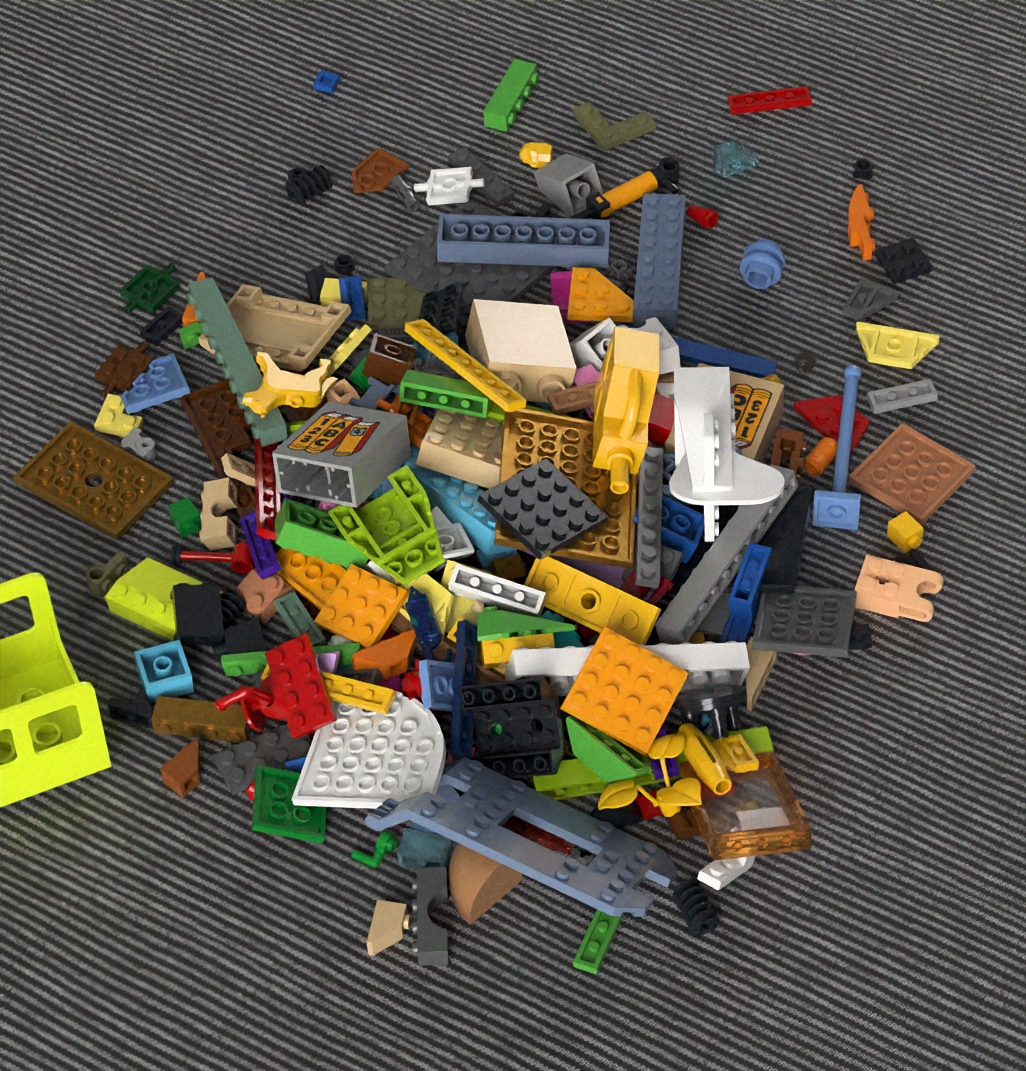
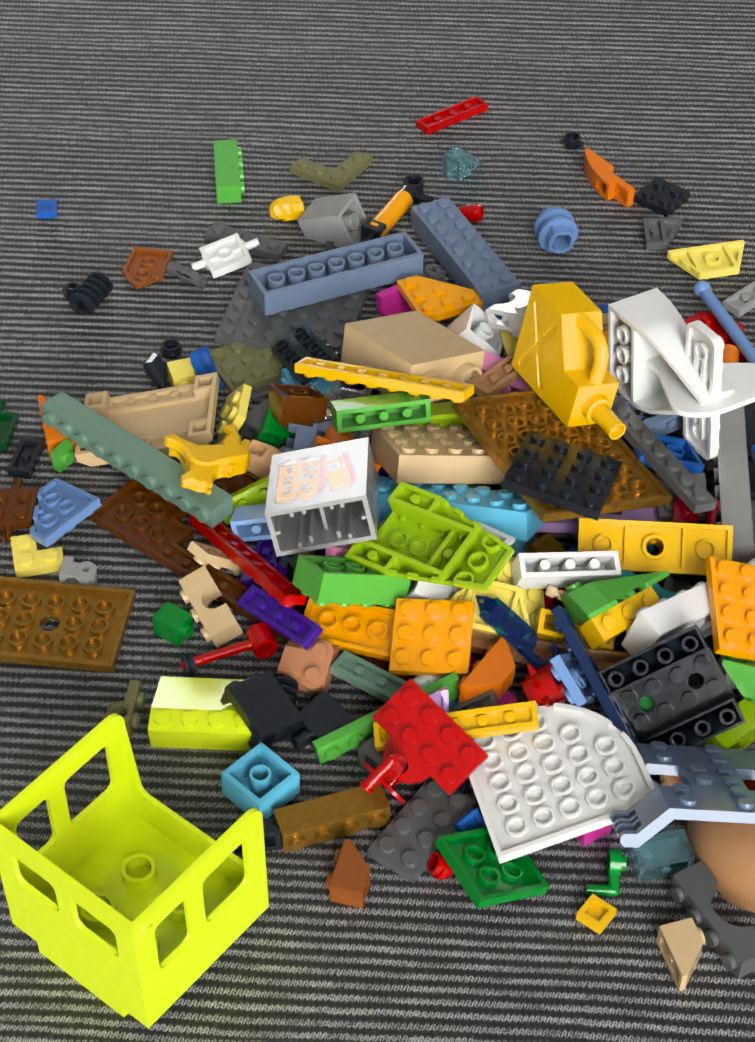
camera: 30 degrees left, 5 degrees down
(345, 873) = (596, 914): none -> yellow plate

